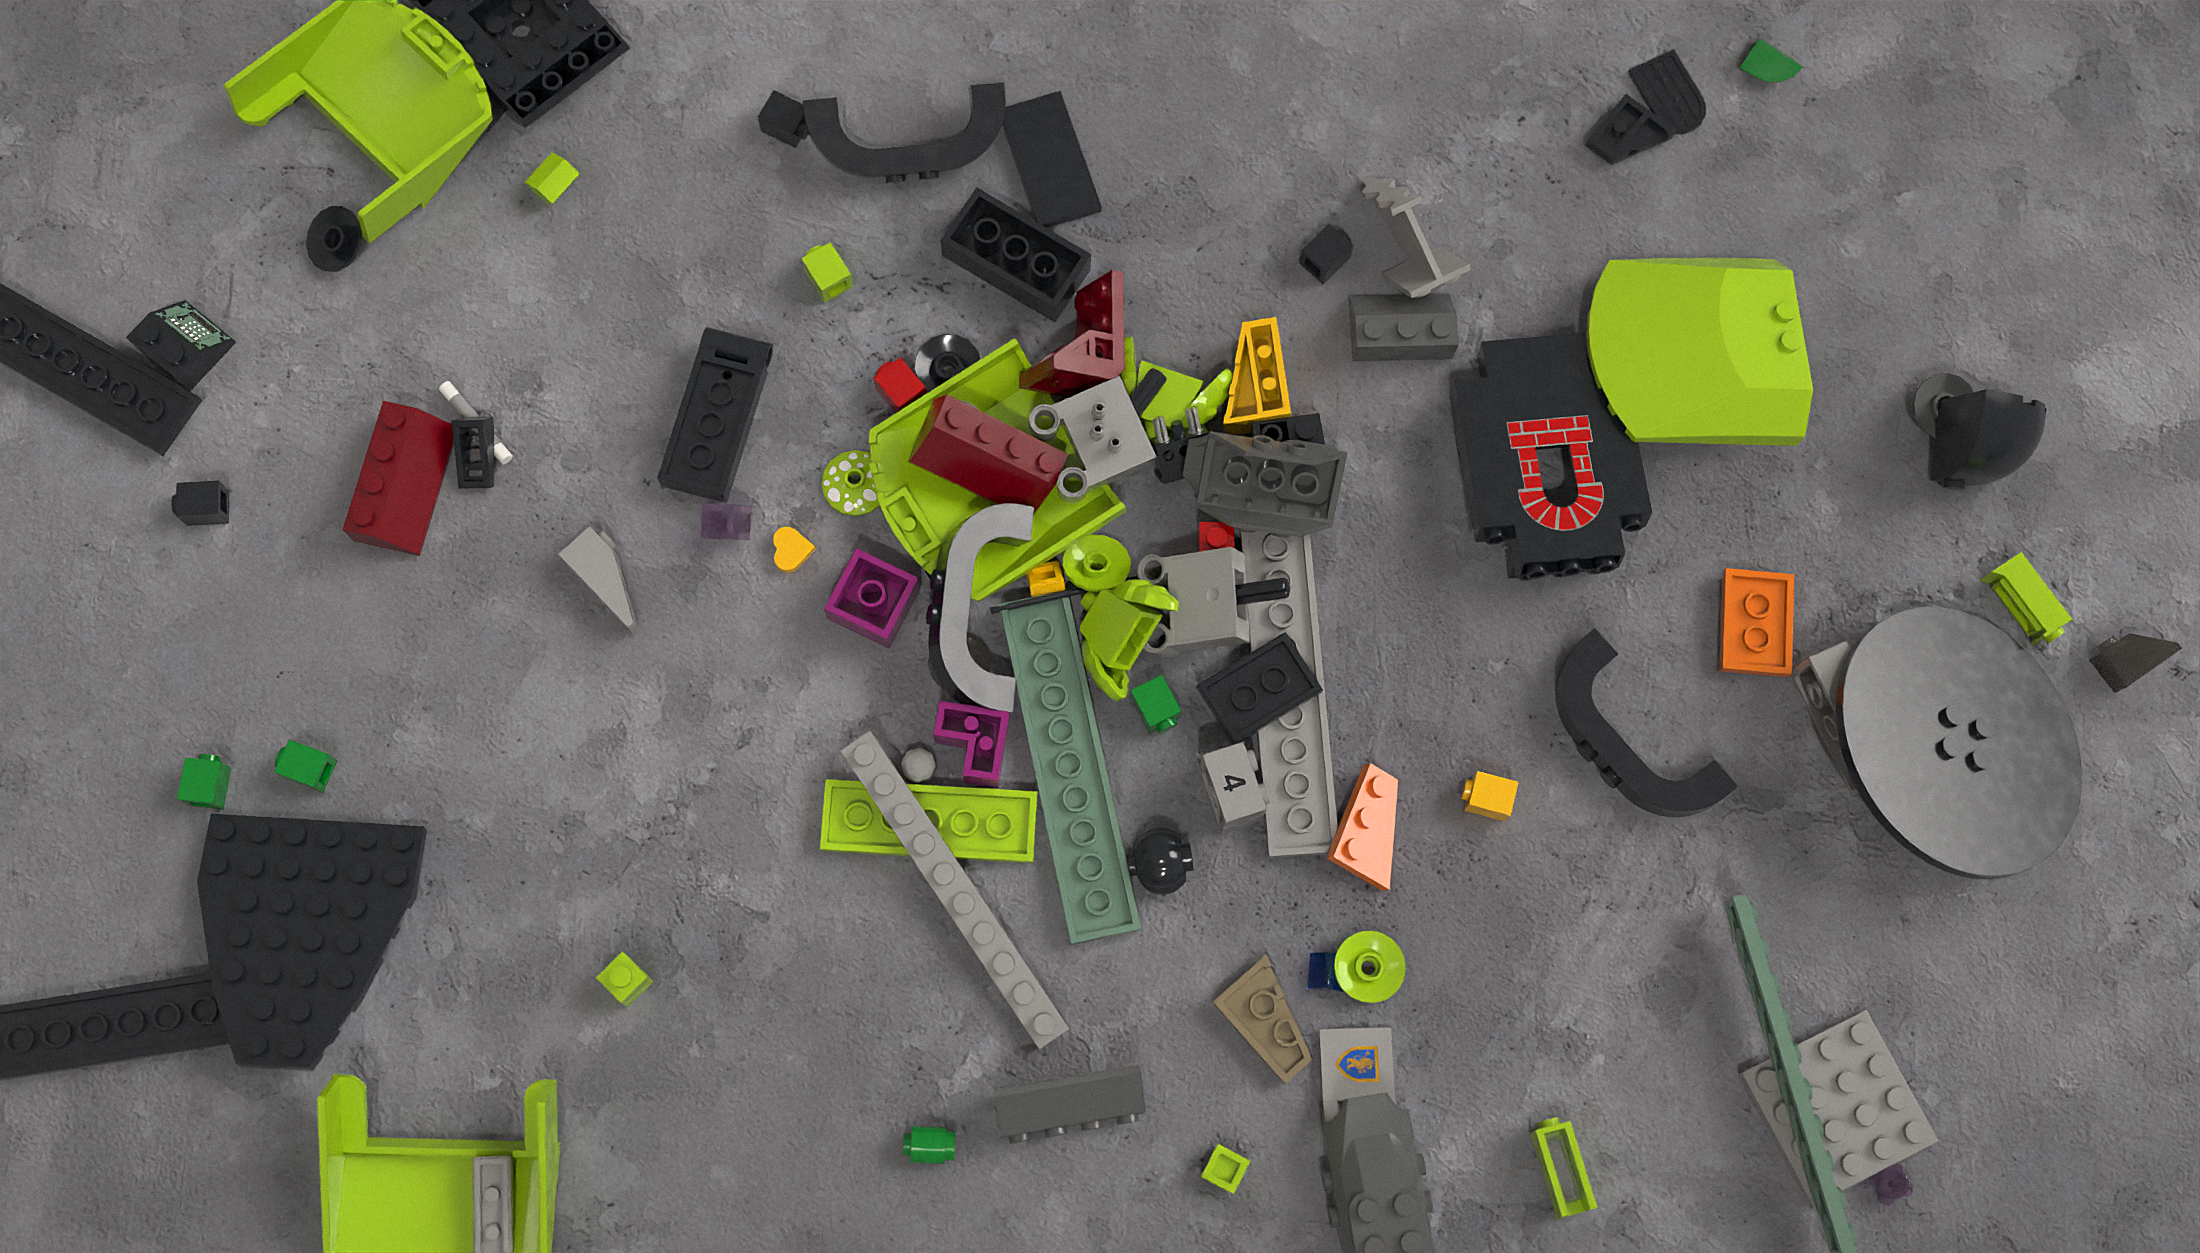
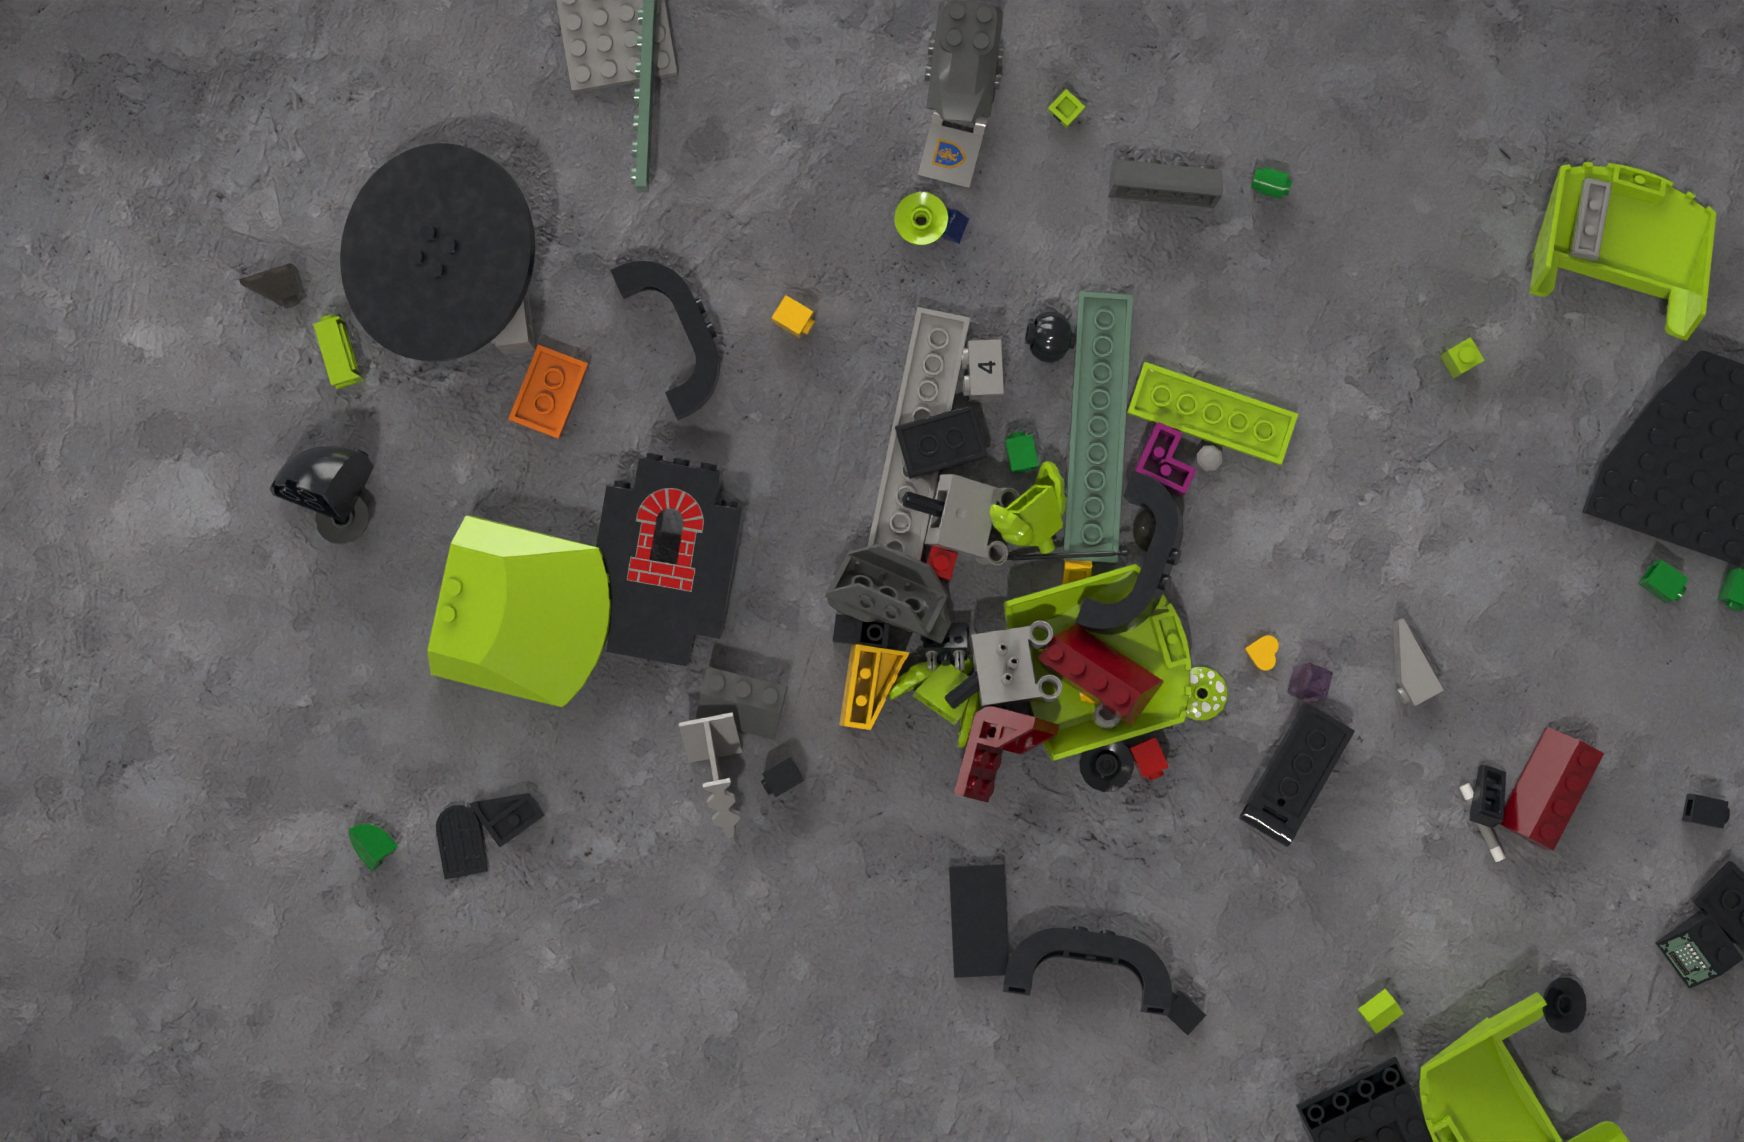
camera: 160 degrees left, 10 degrees up
(827, 271) = (1181, 871): lime brick -> none
(872, 598) = (1213, 591): magenta brick -> none
(955, 890) = (1208, 357): light grey plate -> none
(1015, 254) = (1030, 841): black brick -> none
(1096, 553) = (1024, 581): lime dish -> none
(1264, 1021) = (1007, 203): dark tan wing -> none
(1367, 828) = (891, 319): wing -> none
(1563, 1168) = (828, 43): lime window -> none

